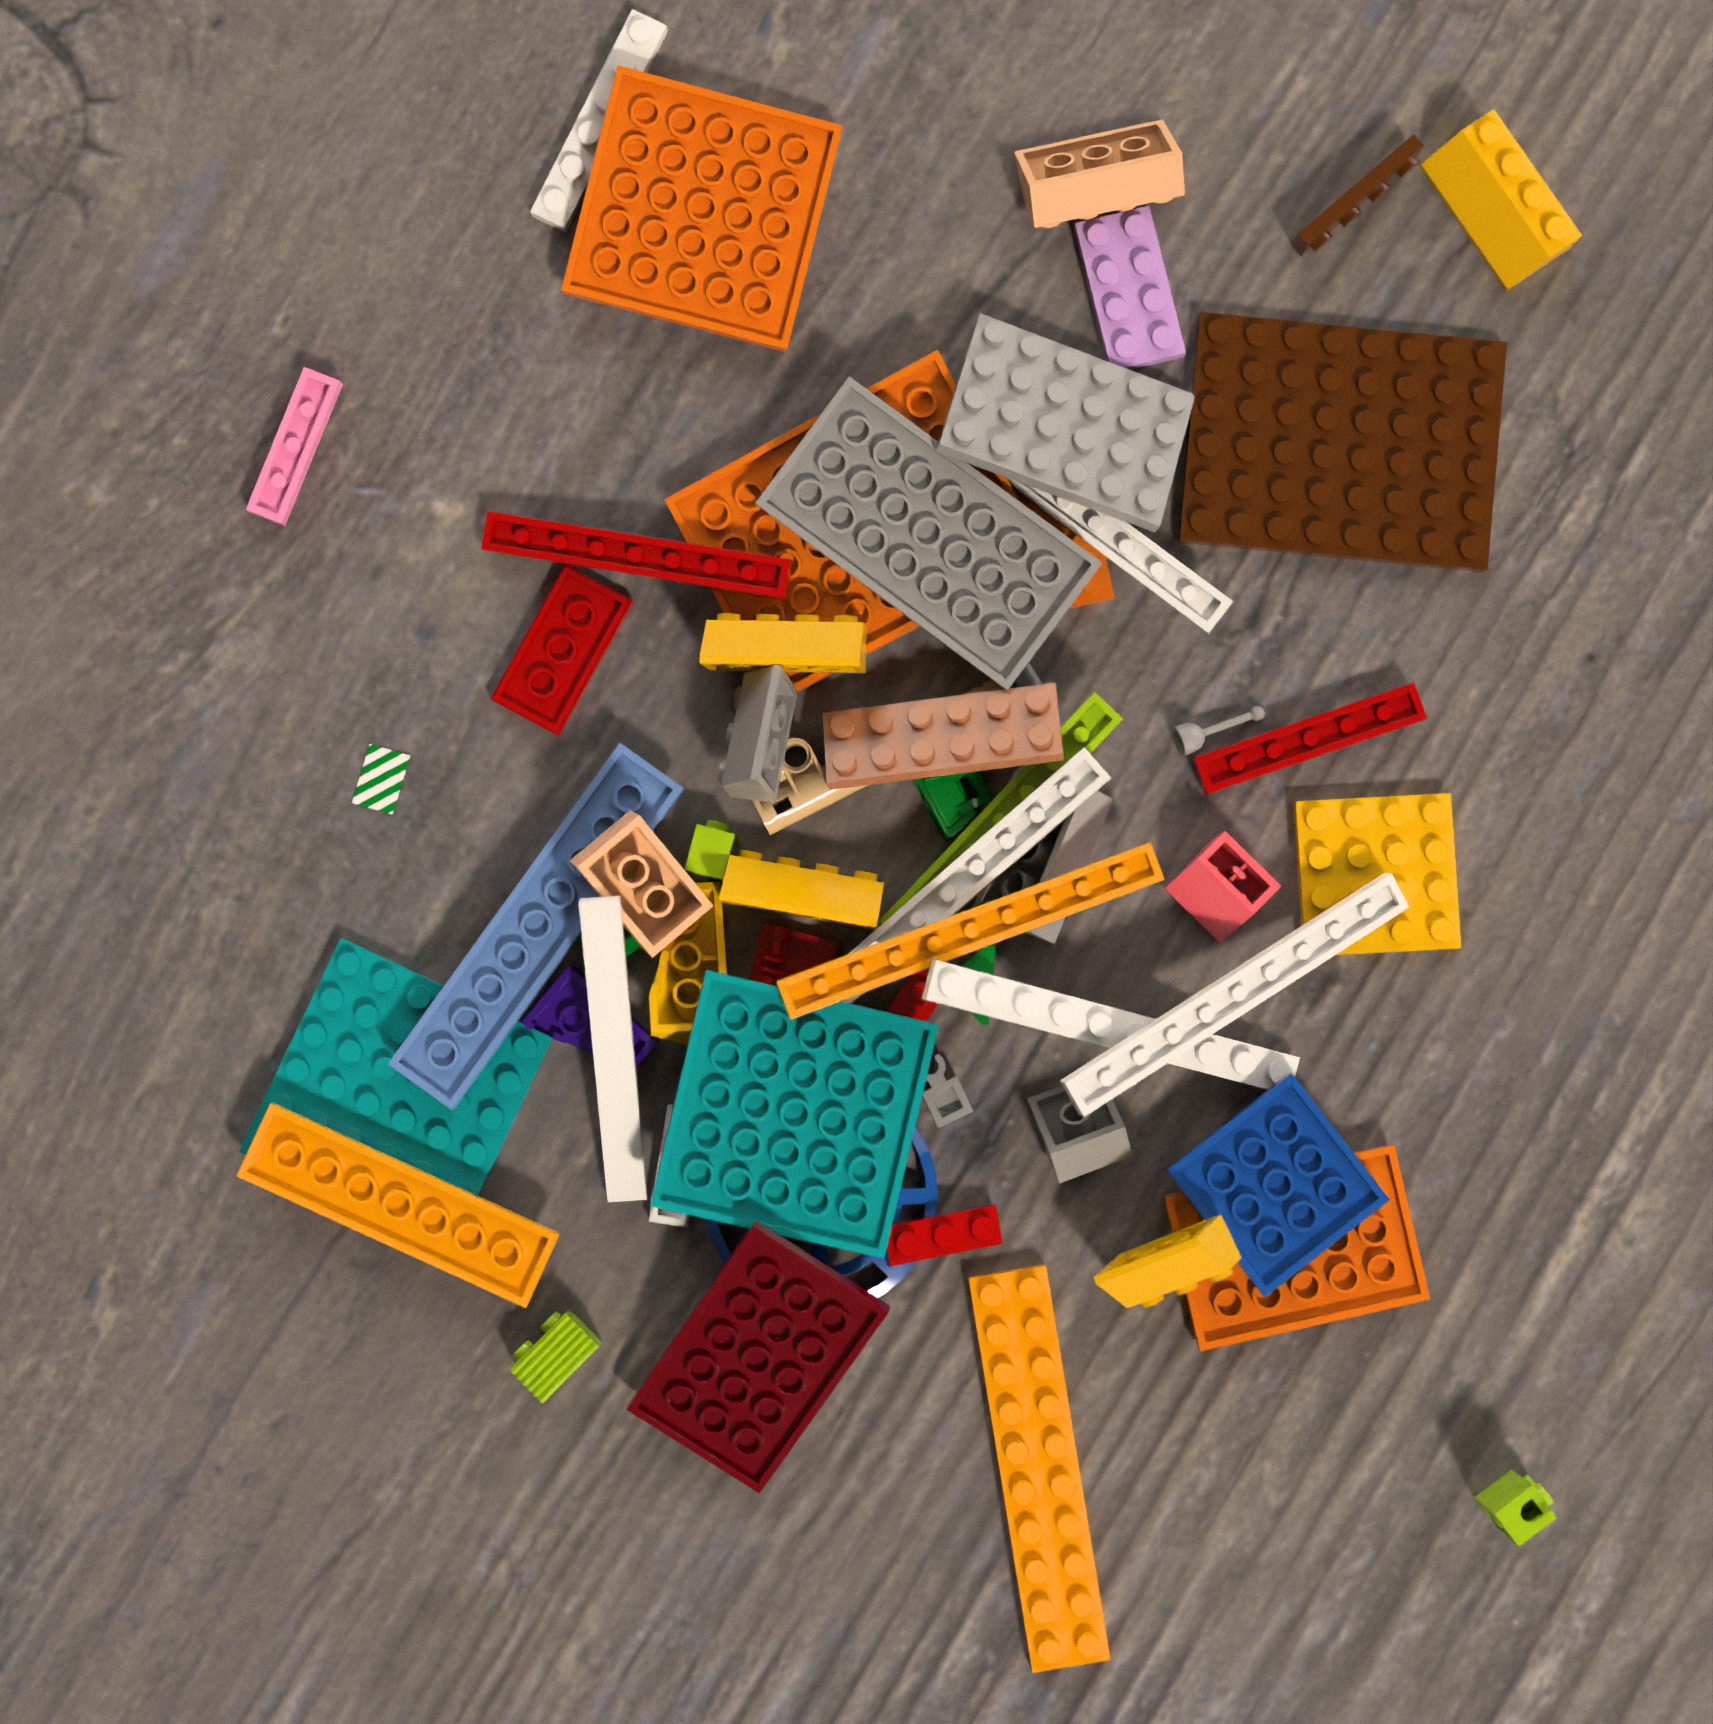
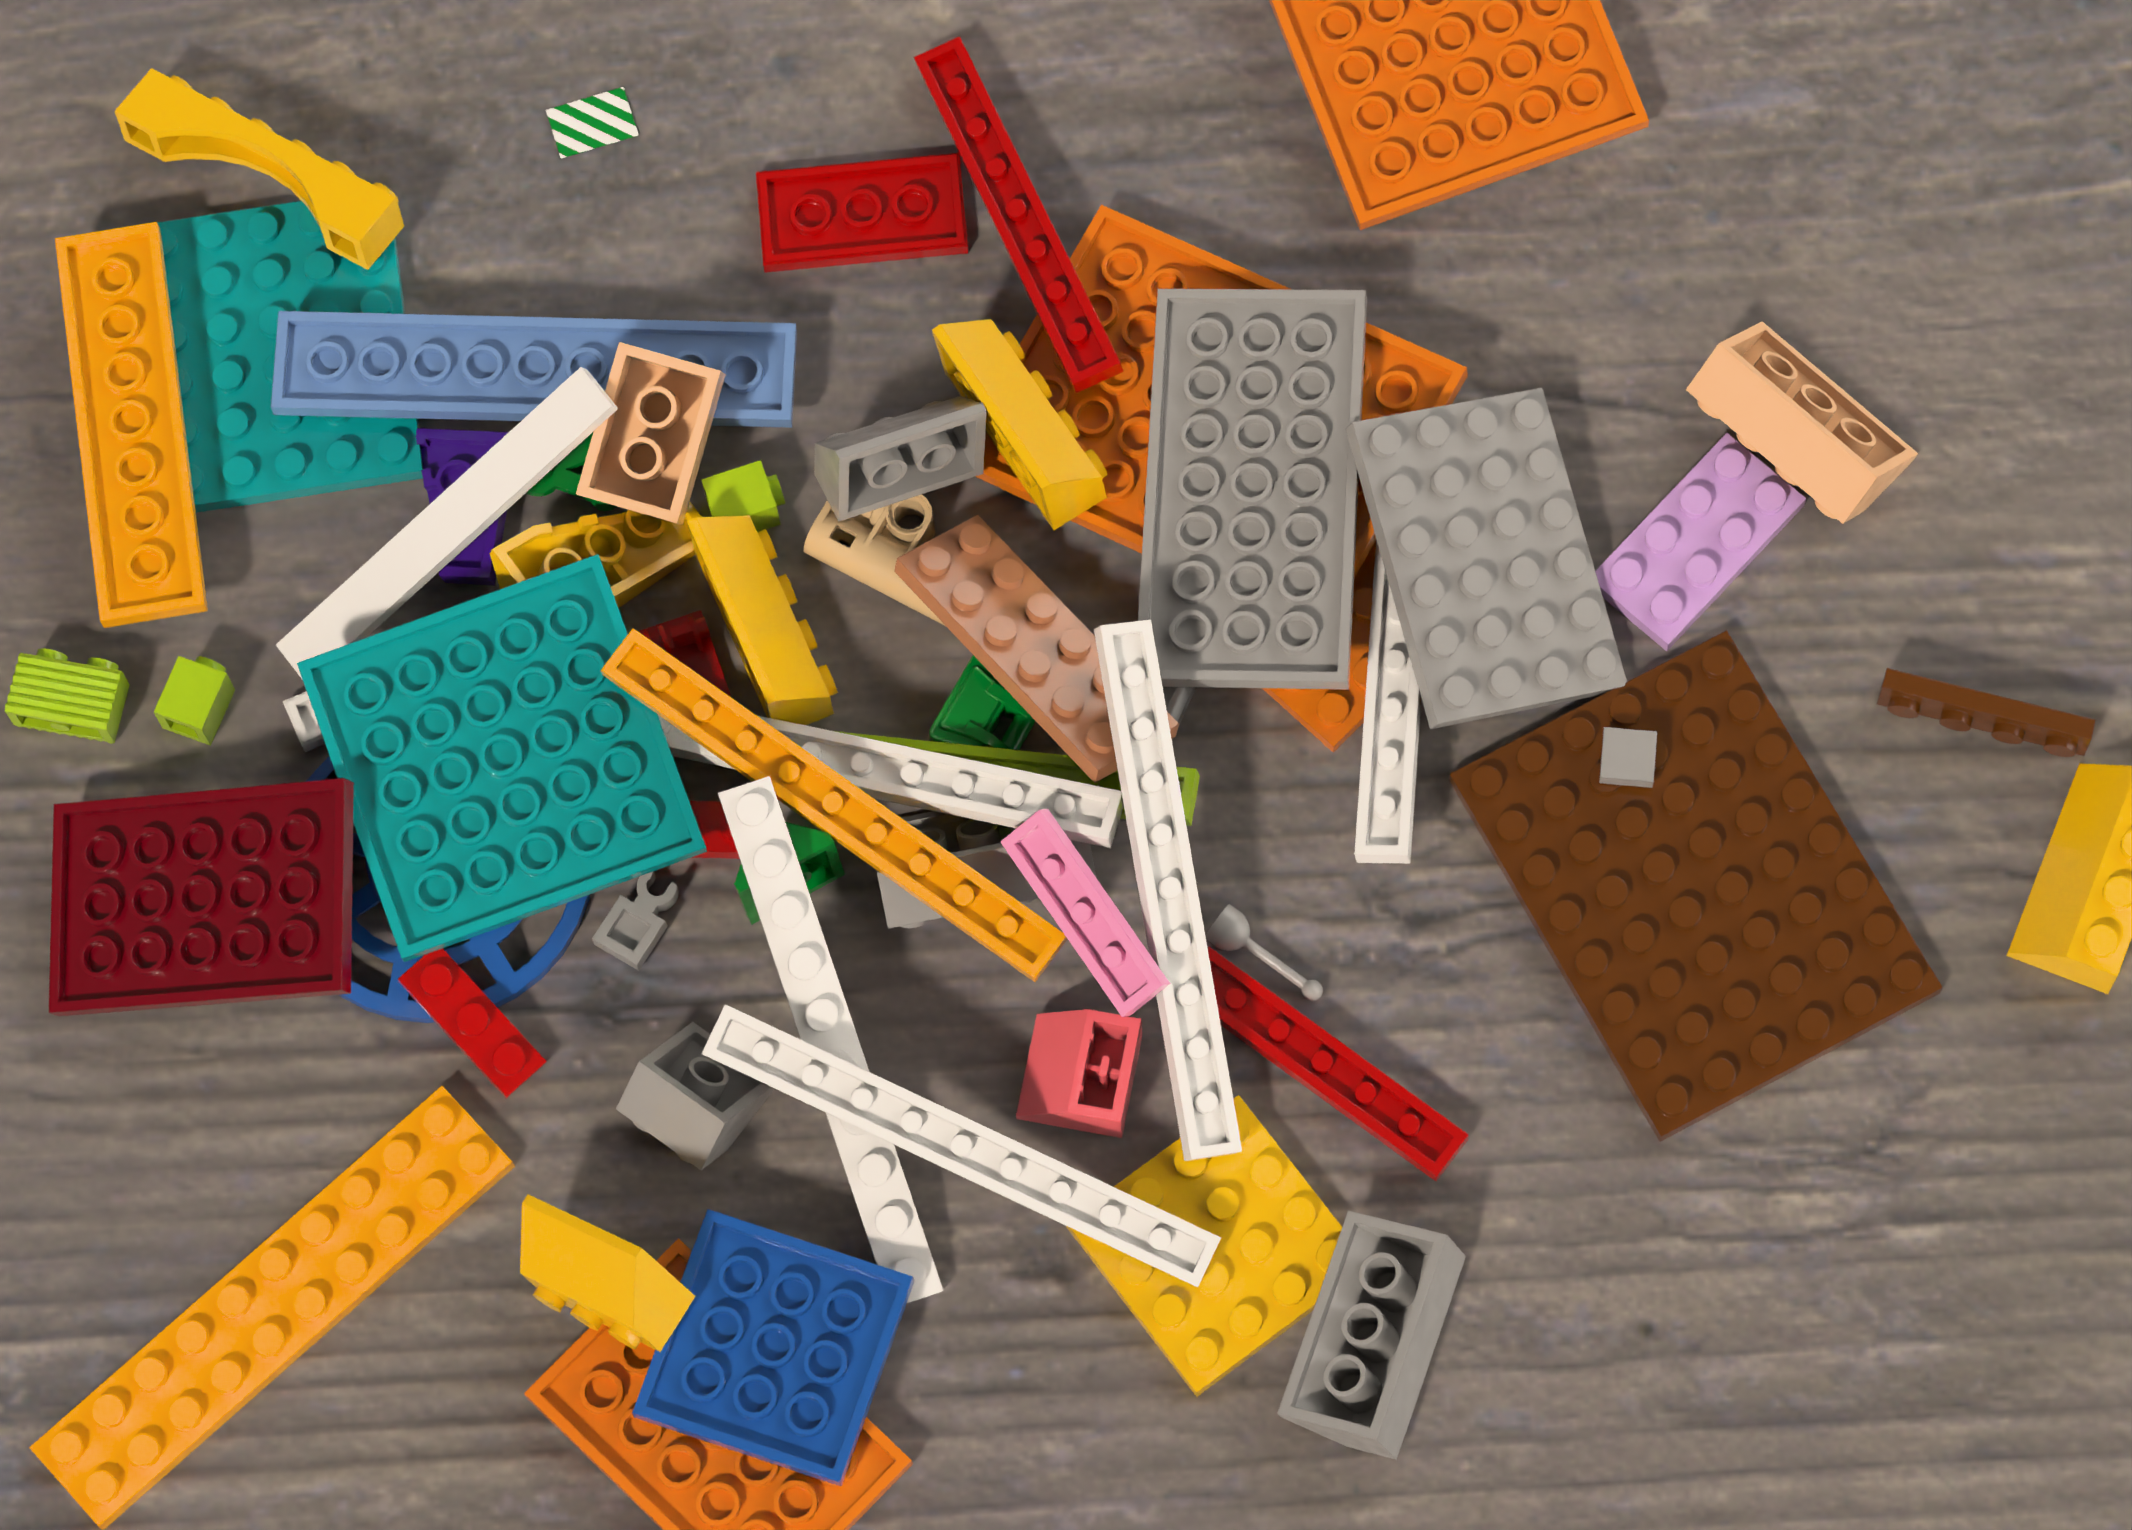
camera: 65 degrees right, 15 degrees down
(205, 1044) = (181, 124): none -> yellow arch
(611, 1275) = (195, 699): none -> lime brick
(1146, 821) = (1085, 912): none -> bright pink plate
(1159, 759) = (1167, 889): none -> white plate
(1247, 426) = (1628, 757): none -> light grey tile
(1500, 823) = (1372, 1333): none -> light grey slope

